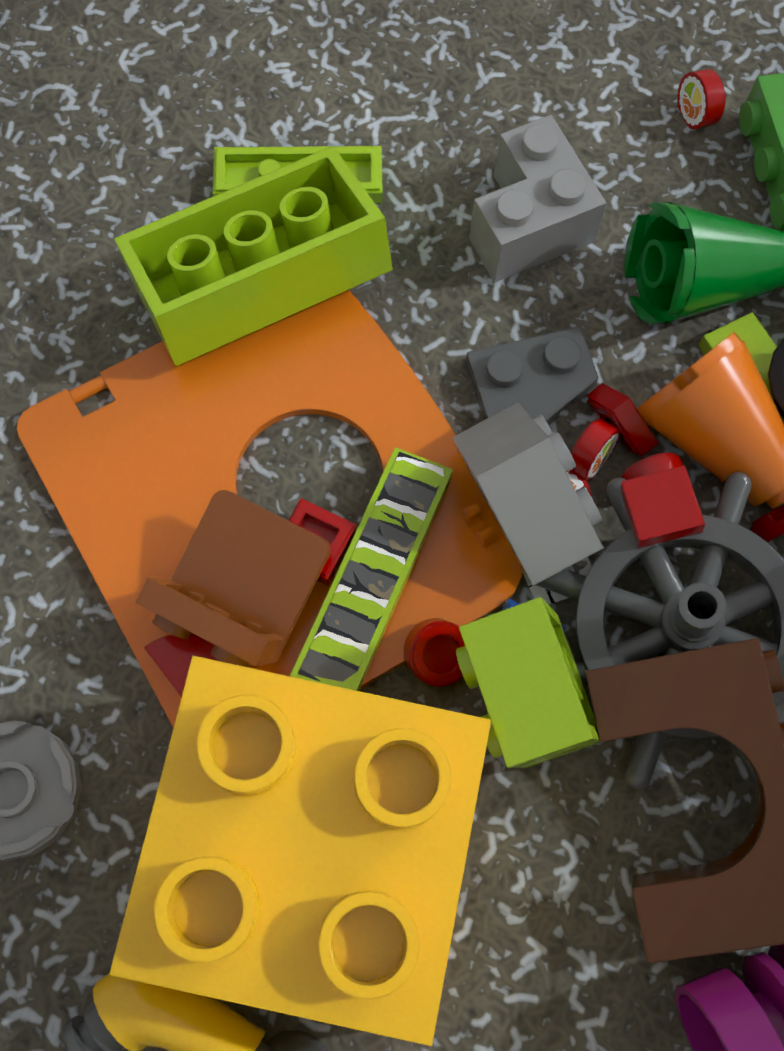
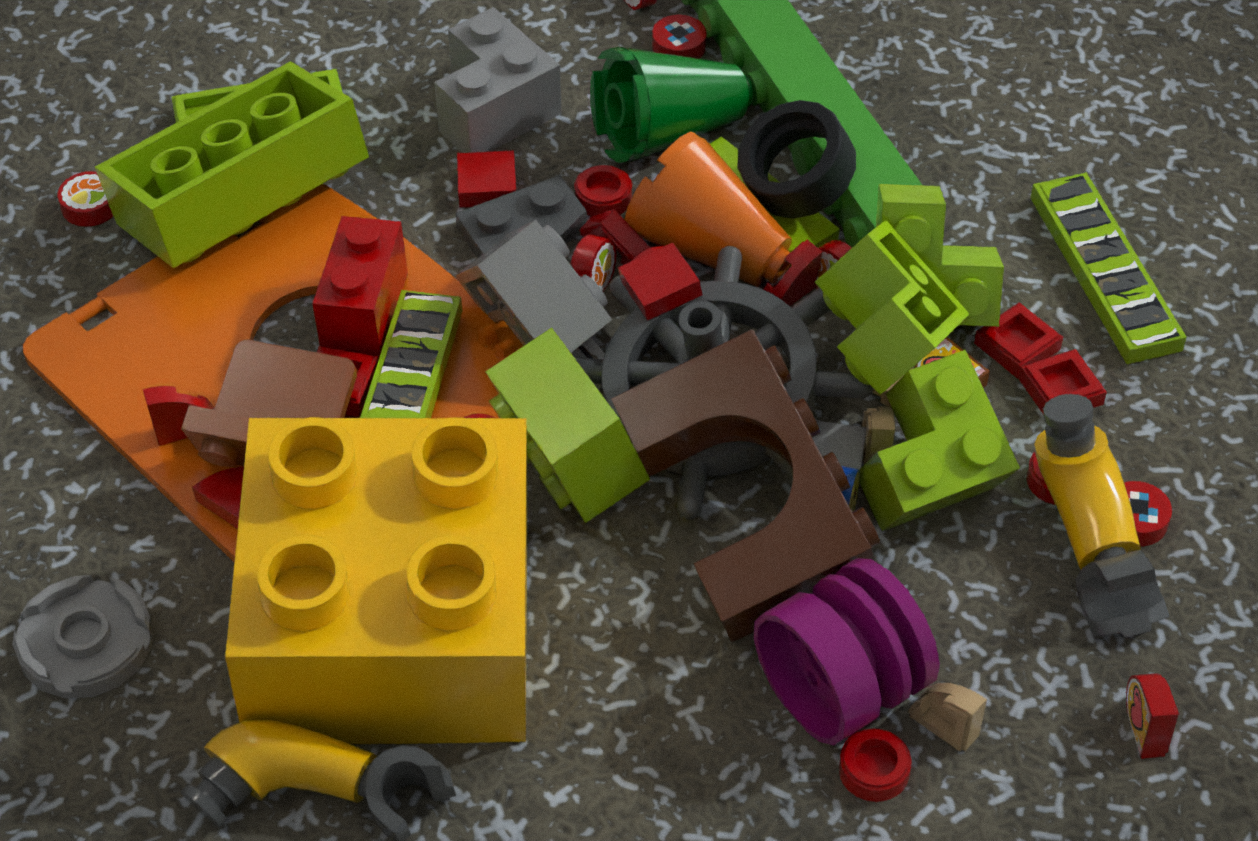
camera: 10 degrees left, 20 degrees down
(103, 254) = (84, 200): none -> tile
(140, 556) = (169, 410): none -> red tile
(353, 439) = (360, 285): none -> red brick
(505, 310) = (485, 176): none -> red tile
(620, 351) = (603, 189): none -> red tile
(729, 177) = (679, 36): none -> red tile

